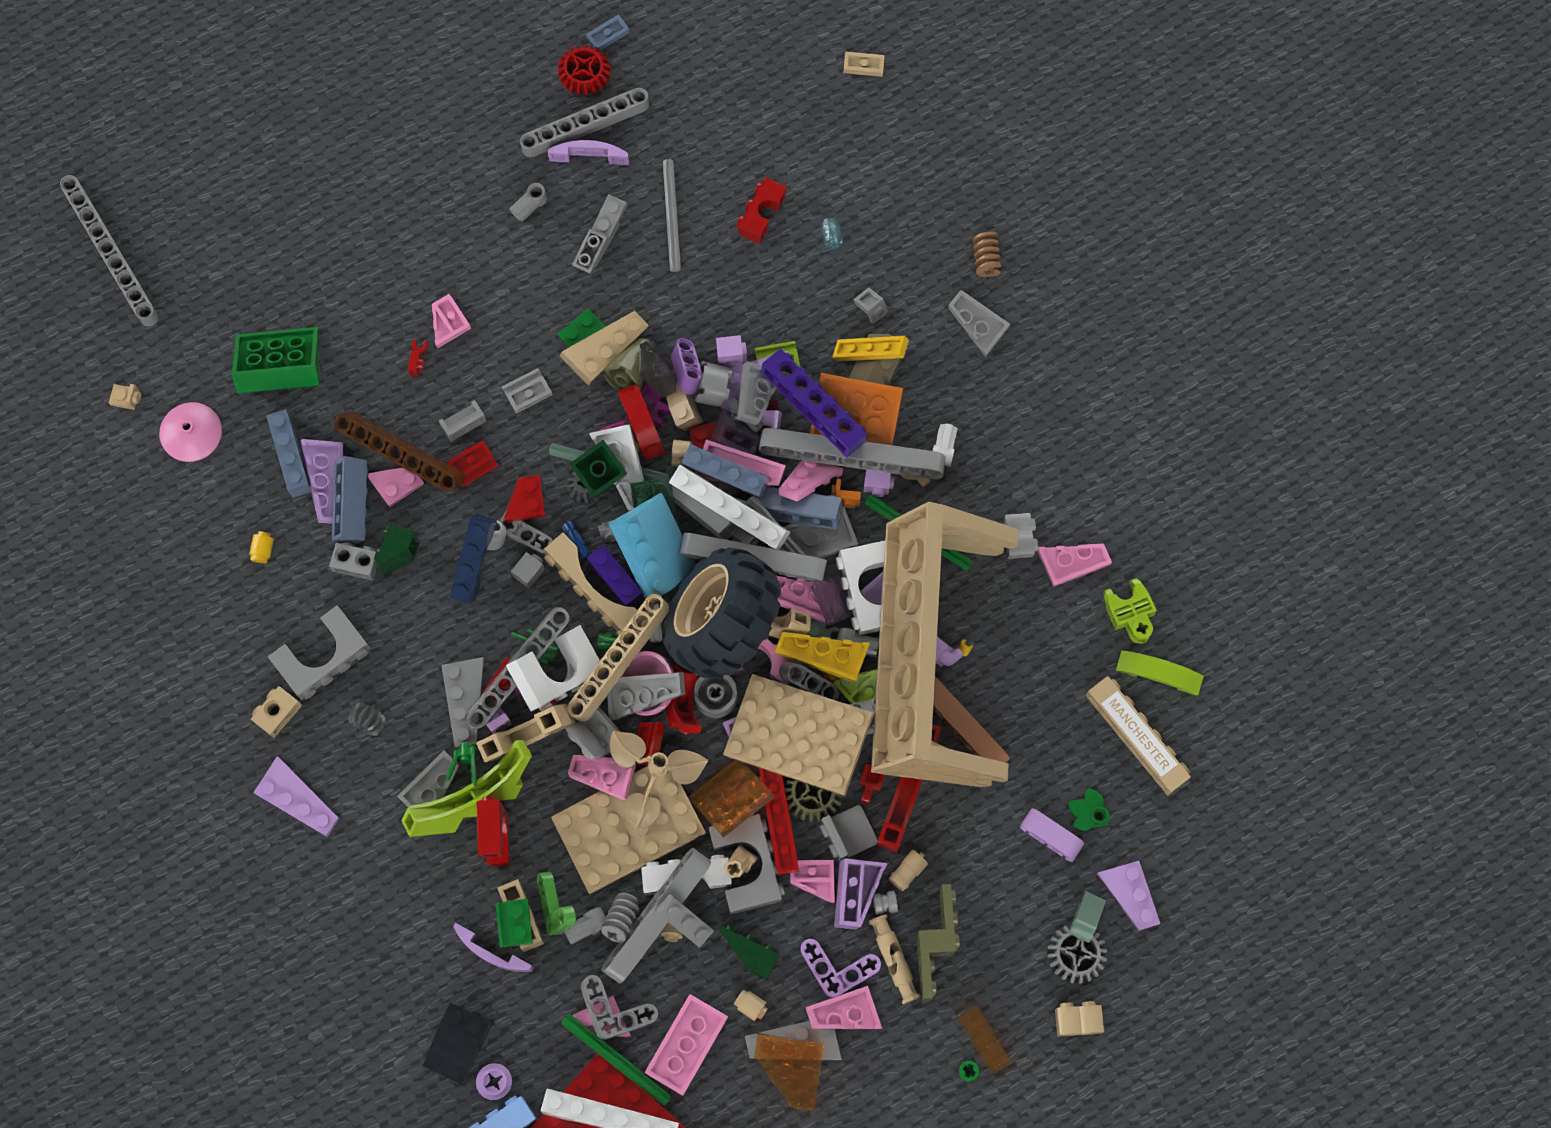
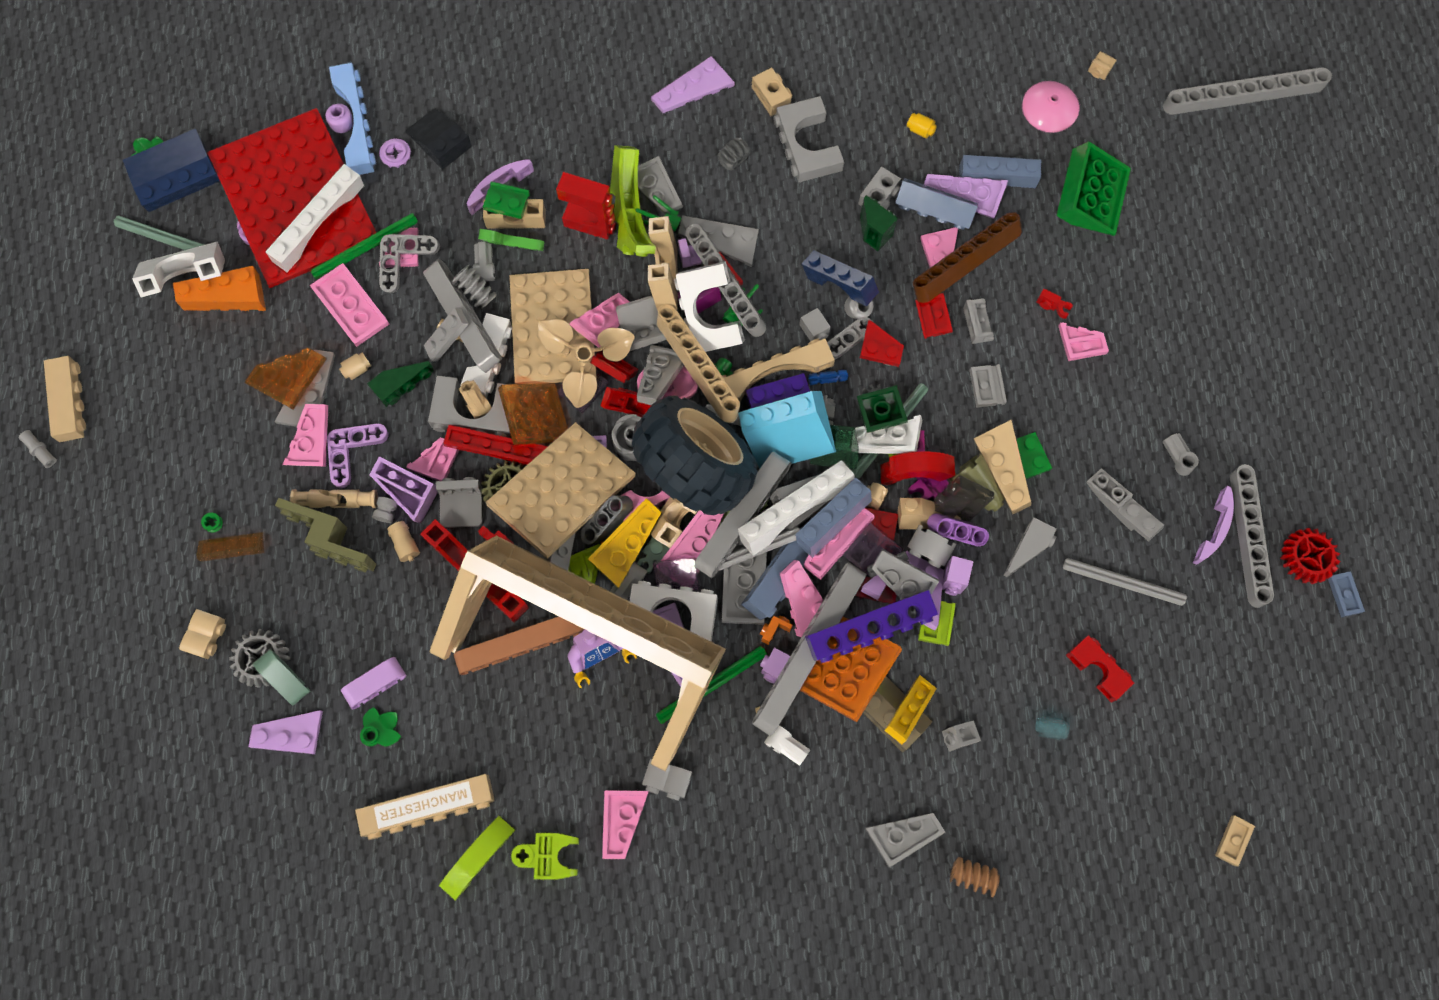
camera: 110 degrees right, 0 degrees up
(669, 301) = (1033, 542): none -> light grey slope

